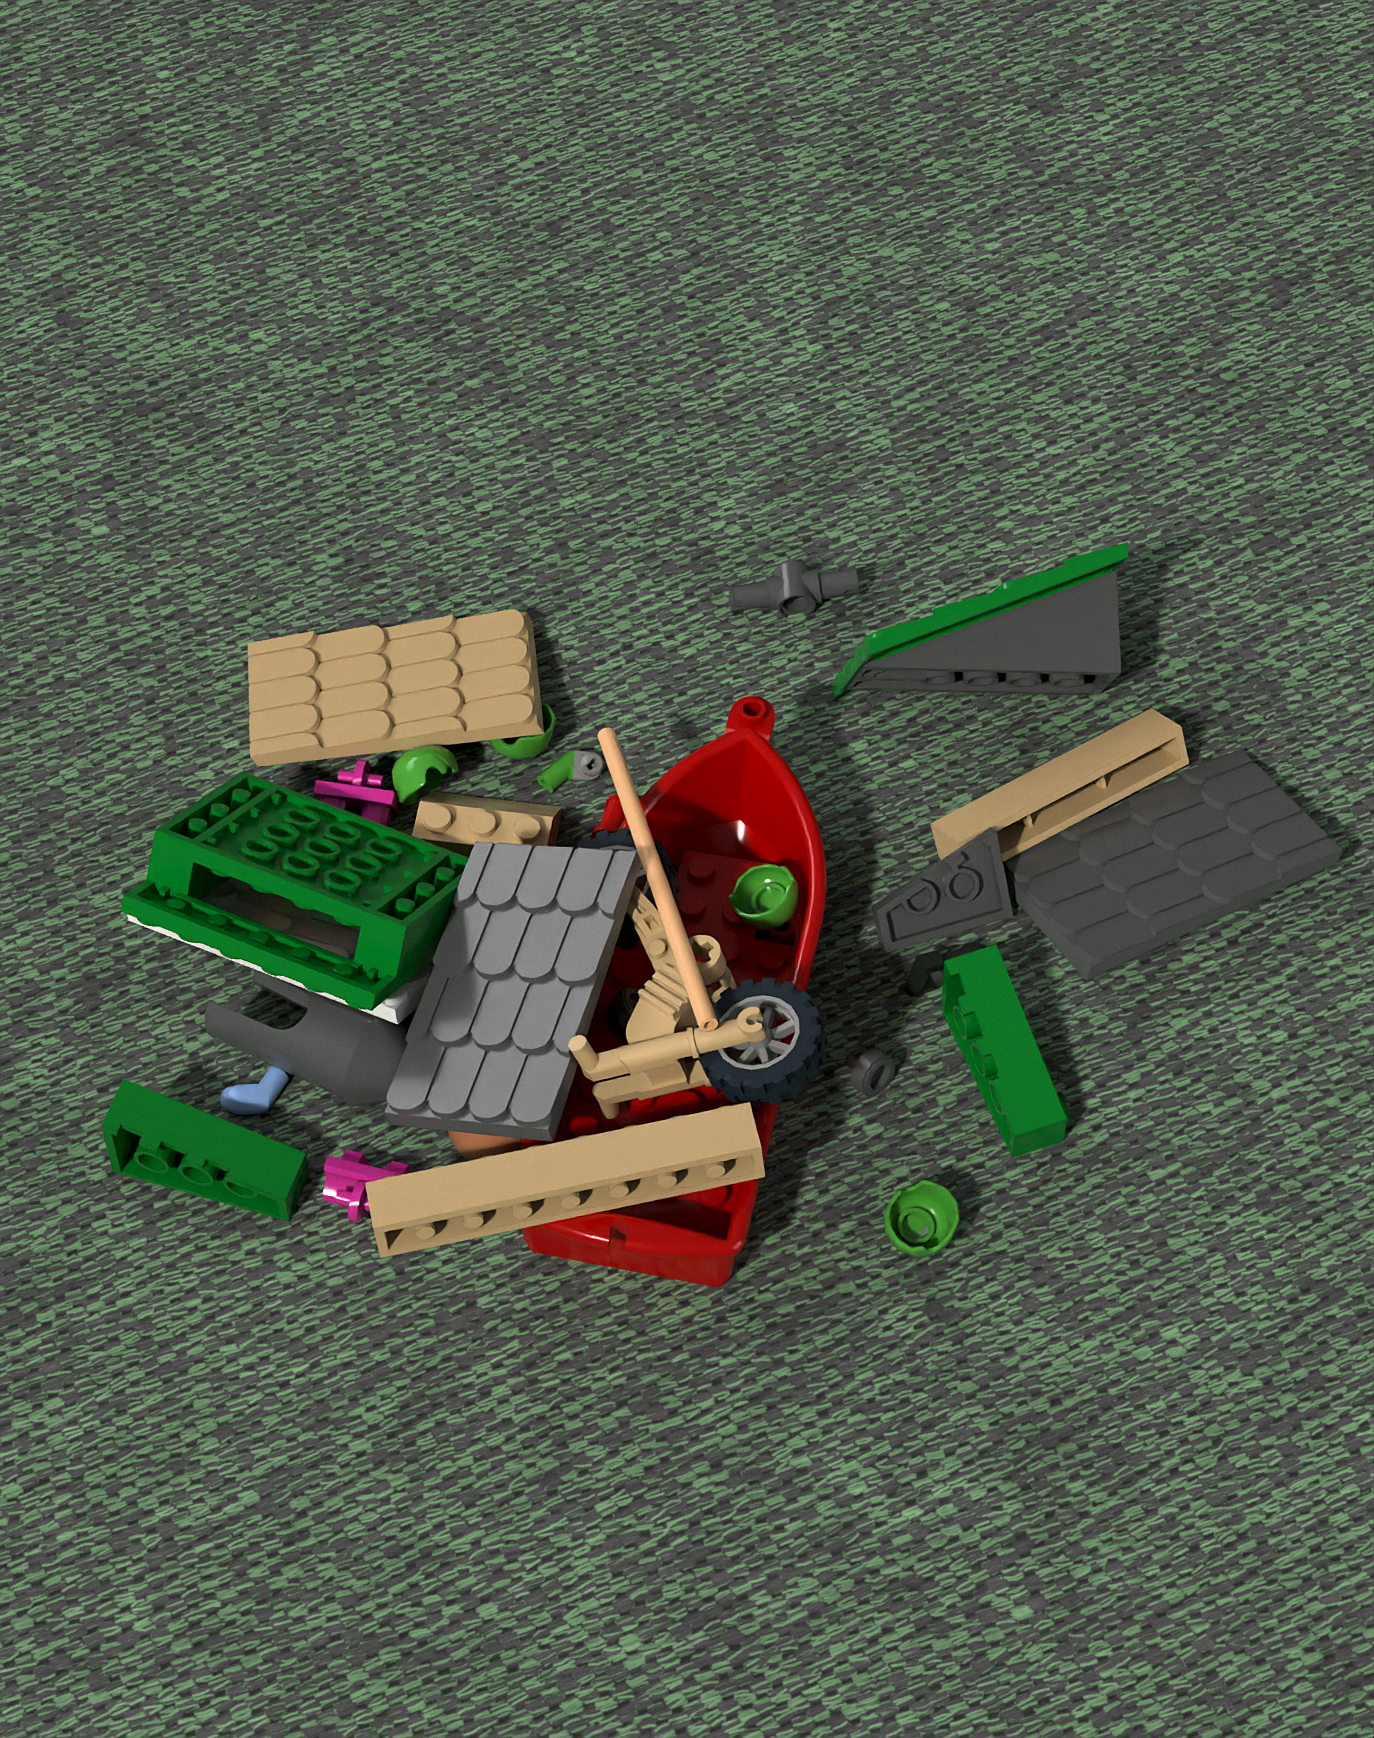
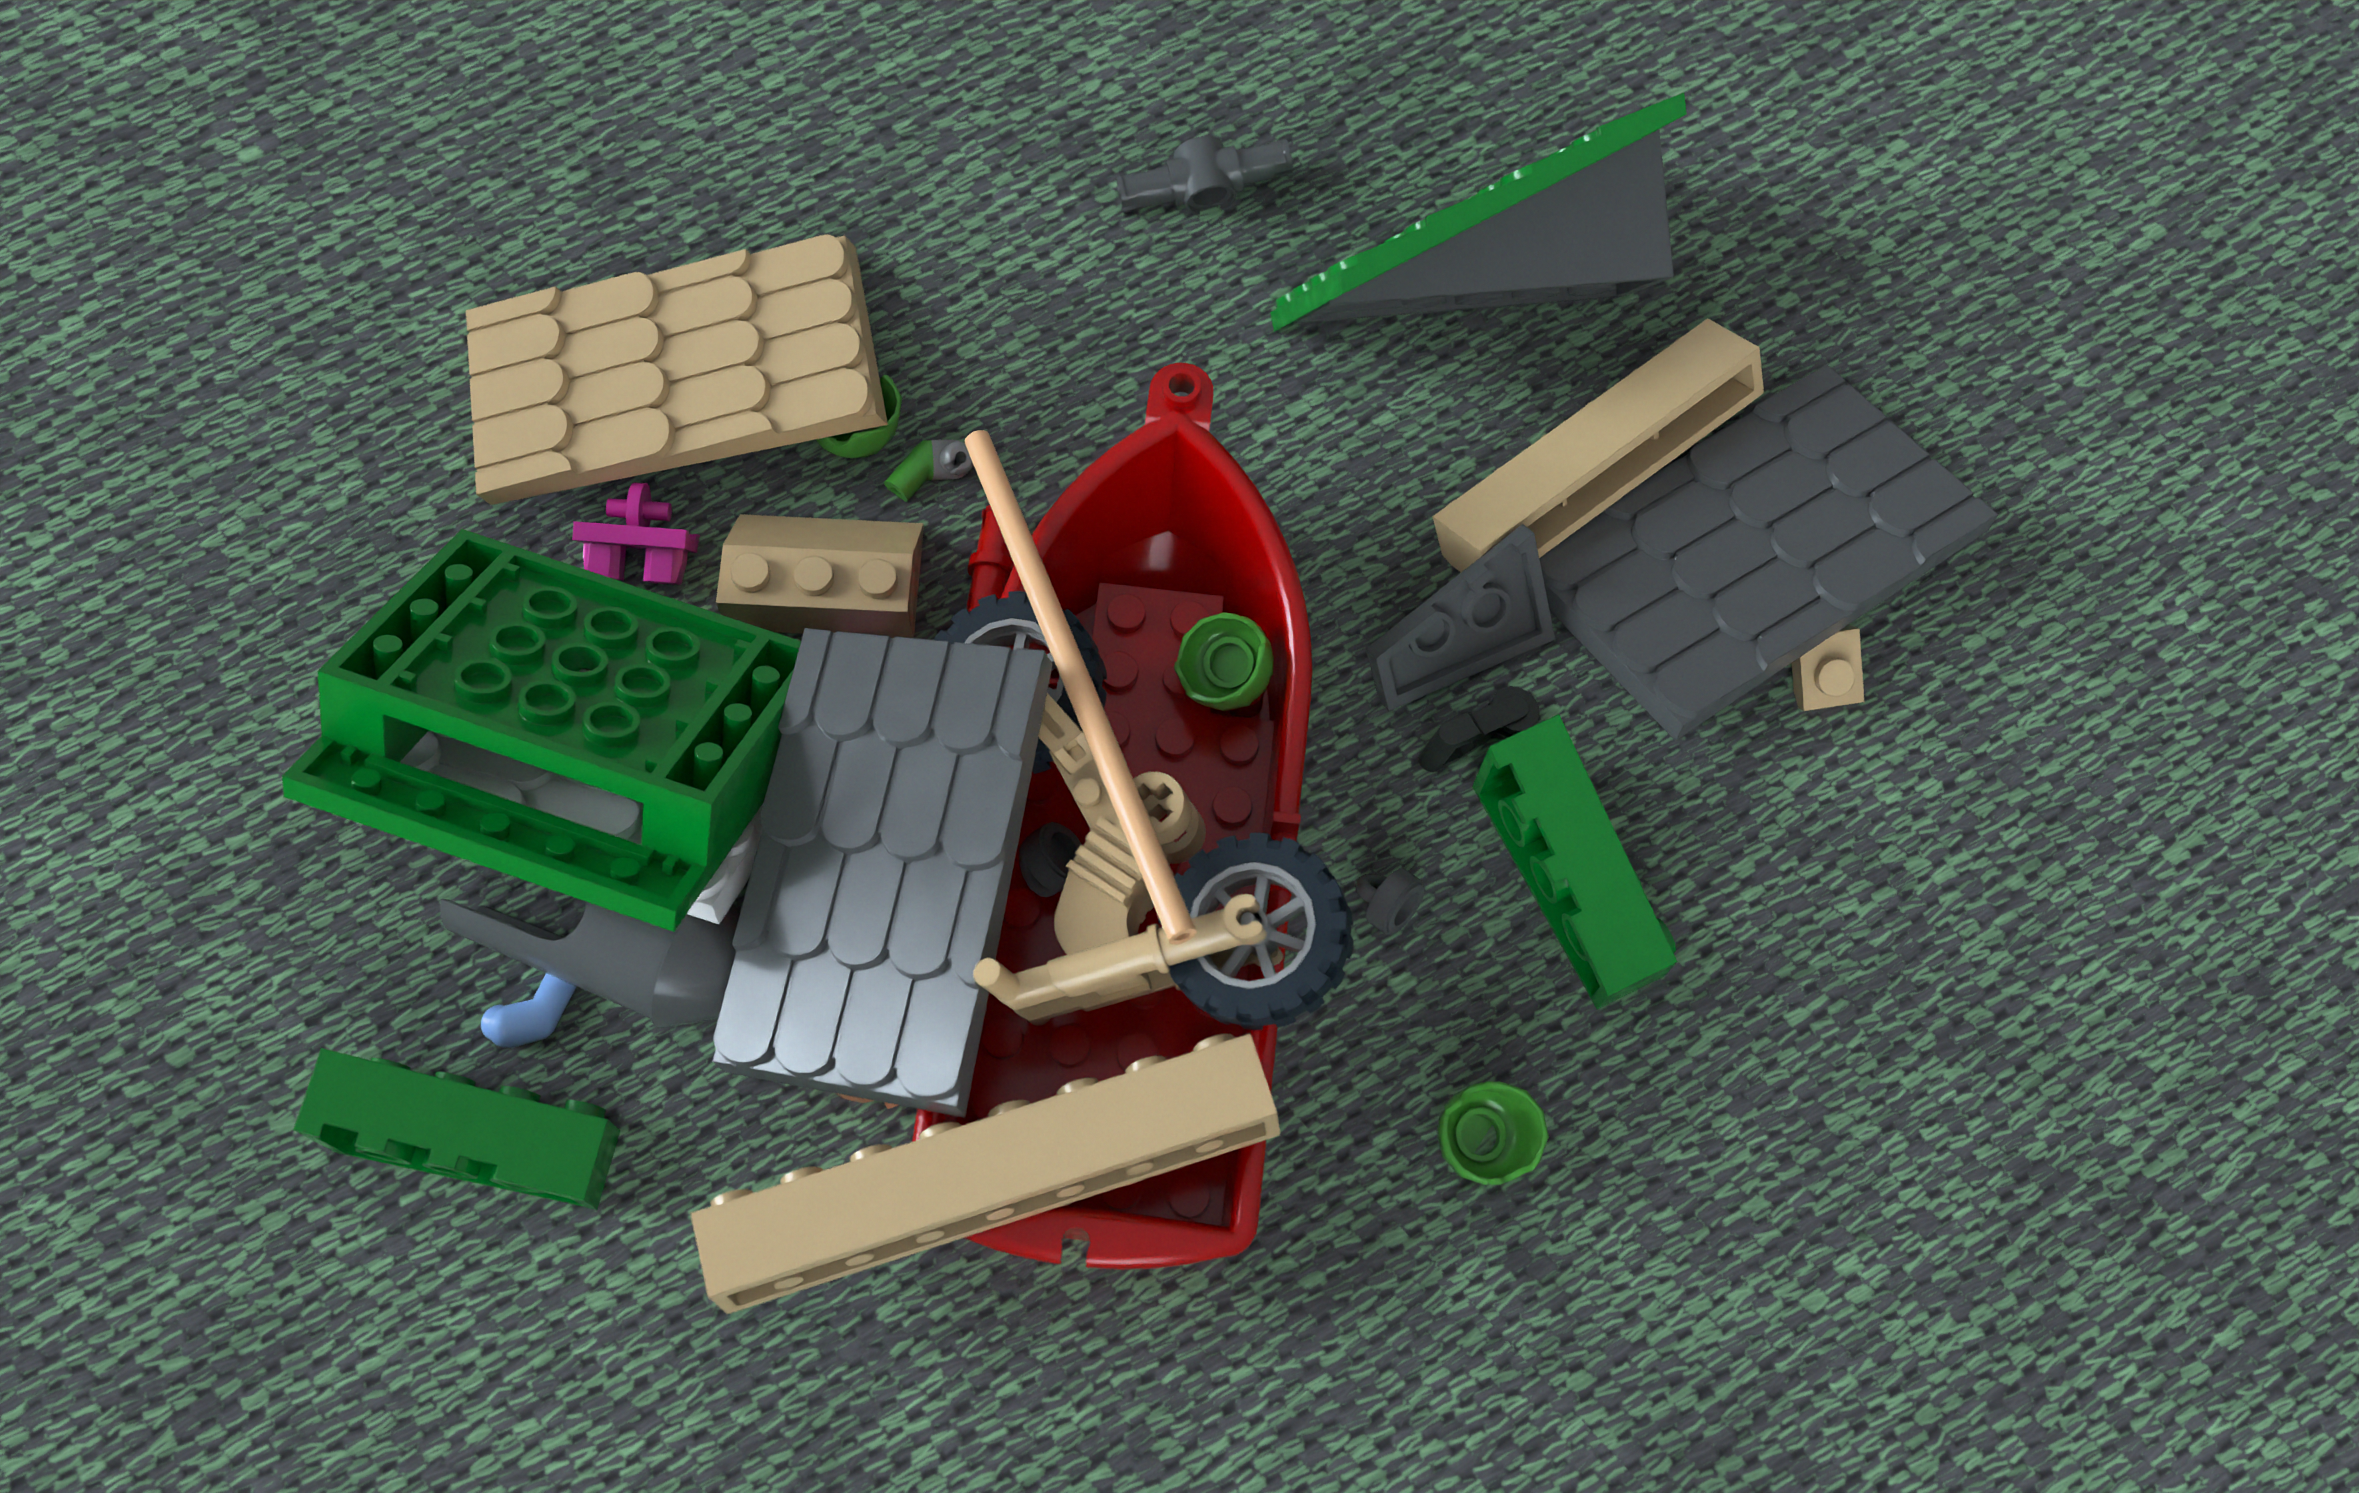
camera: 10 degrees left, 15 degrees up
(347, 1181) = (698, 1159): dark pink hips -> none
(421, 768) = (719, 485): bright green hair -> none
(1211, 949) = (1830, 672): none -> tan bracket

